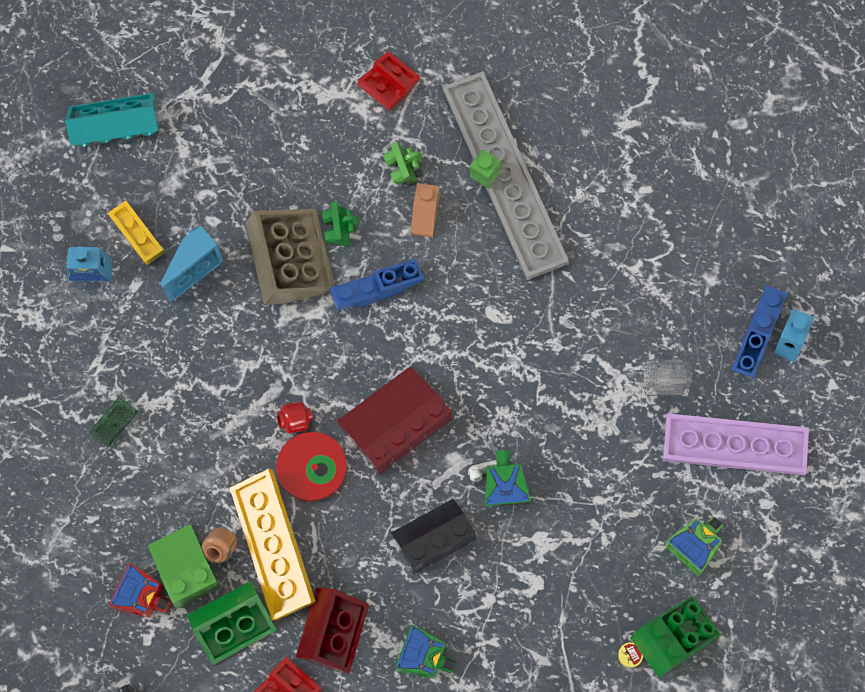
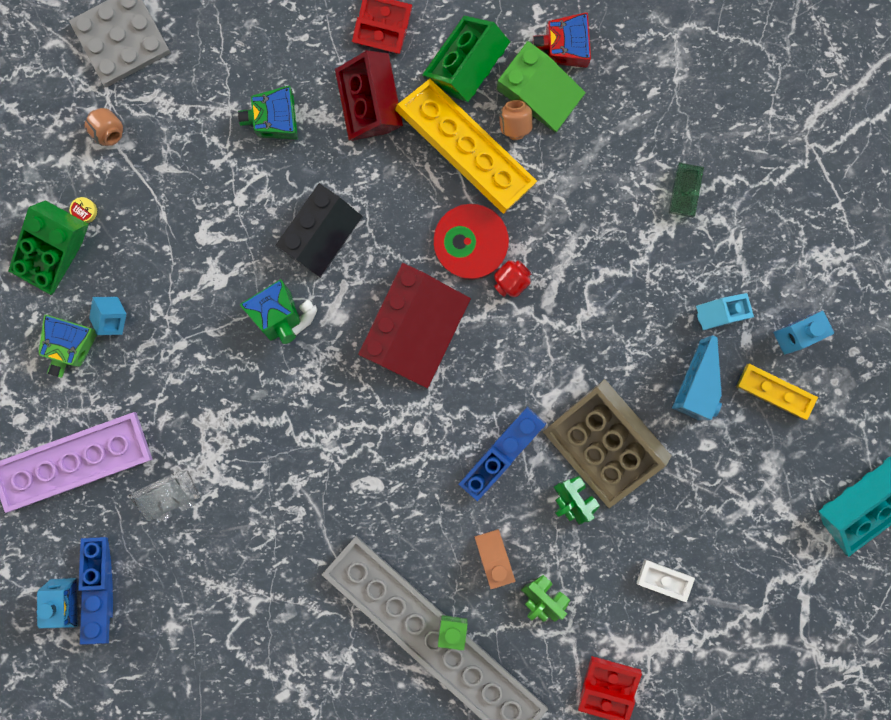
camera: 145 degrees right, 15 degrees up
(140, 310) = (724, 311): none -> medium azure slope
(302, 136) = (665, 580): none -> white plate
(649, 550) = (107, 315): none -> dark azure panel

